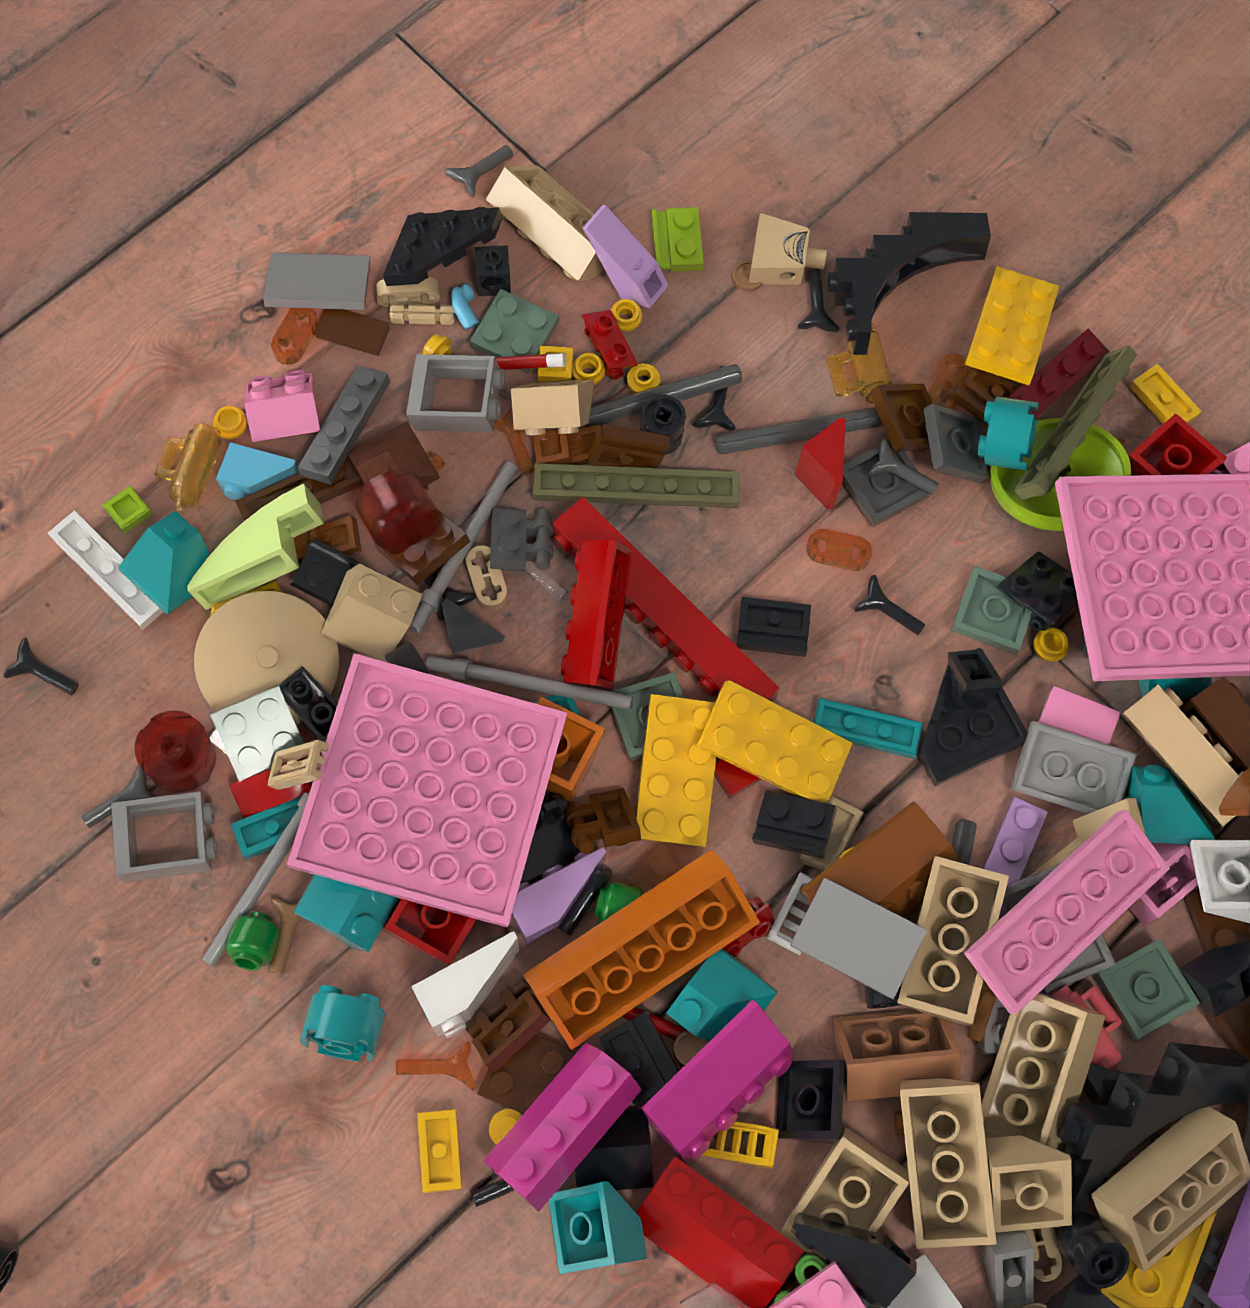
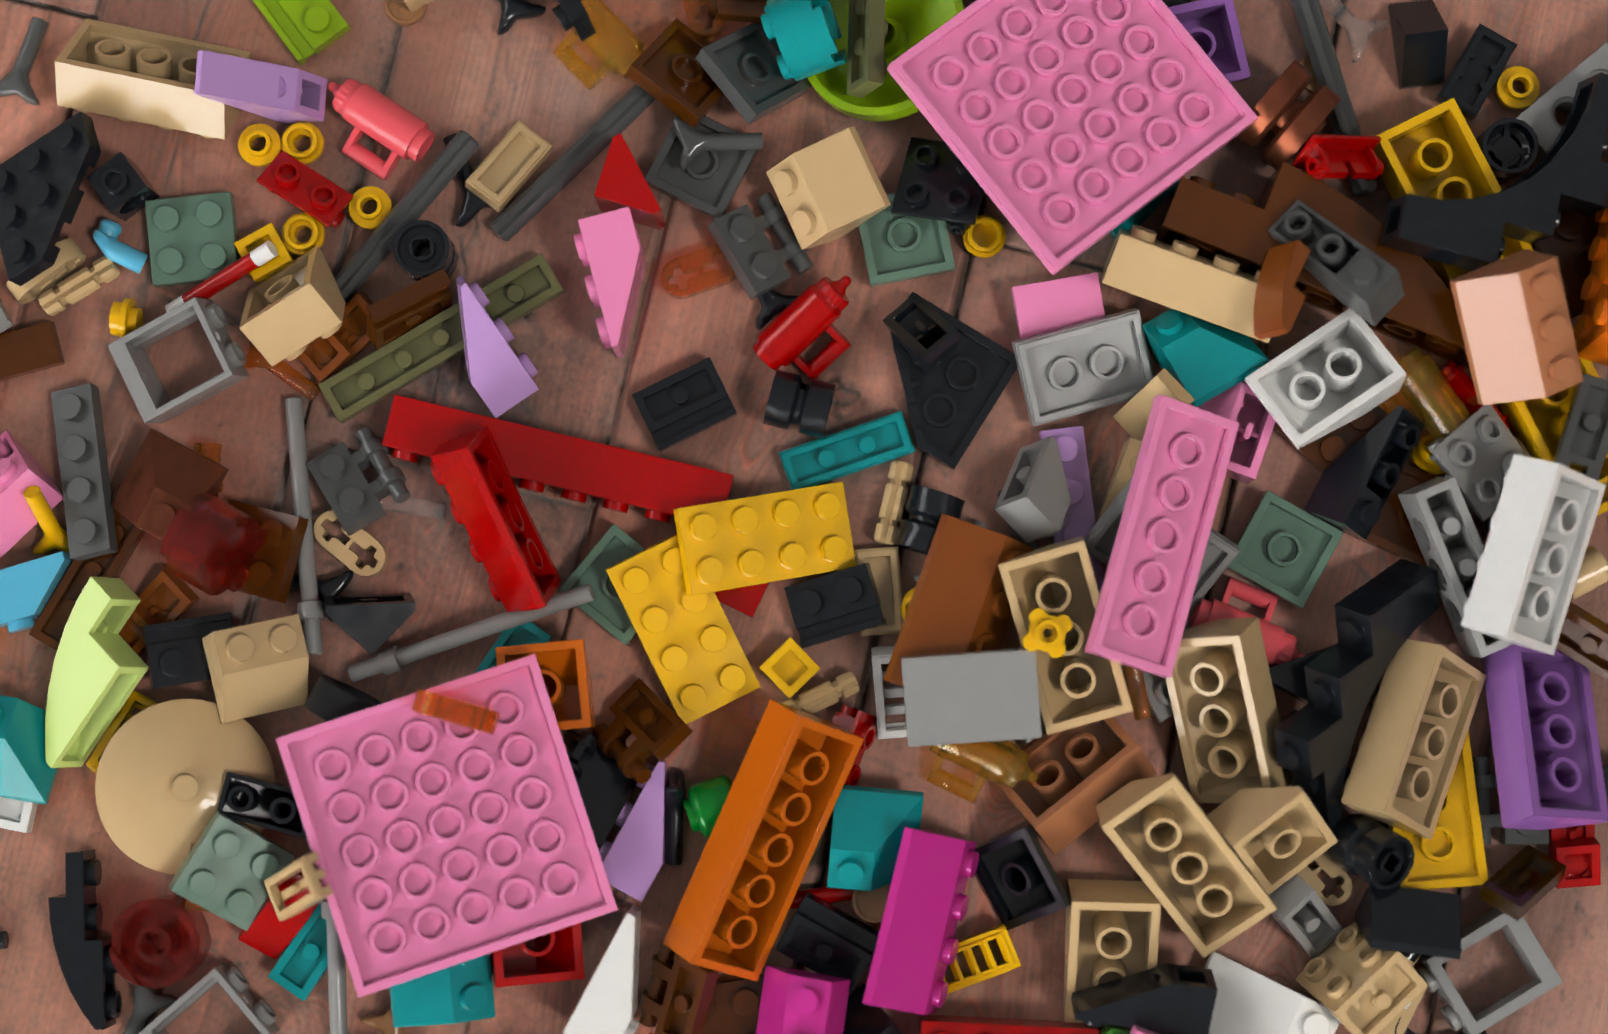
camera: 25 degrees left, 15 degrees up
(119, 721) = (80, 952): none -> black slope
(297, 448) = (54, 535): none -> yellow piece
(489, 711) = (455, 711): none -> clear orange beam
(597, 291) = (265, 156): none -> yellow plate
(660, 519) = (490, 361): none -> lavender slope
(688, 332) = (382, 121): none -> coral piece
(735, 846) = (789, 668): none -> yellow plate
(751, 882) = (826, 694): none -> tan axle
(752, 407) = (508, 166): none -> tan tile
(781, 508) = (617, 265): none -> bright pink slope
(835, 990) = (991, 760): none -> clear yellow piece
(854, 672) = (799, 404): none -> black wheel
(879, 781) = (893, 502): none -> tan axle
(882, 556) = (750, 251): none -> dark grey plate
(891, 621) = (802, 324): none -> red piece
(898, 796) = (925, 511): none -> black wheel
(932, 925) = (1038, 623): none -> yellow plate
(963, 544) = (828, 188): none -> tan slope
(988, 833) = (1035, 492): none -> light grey slope

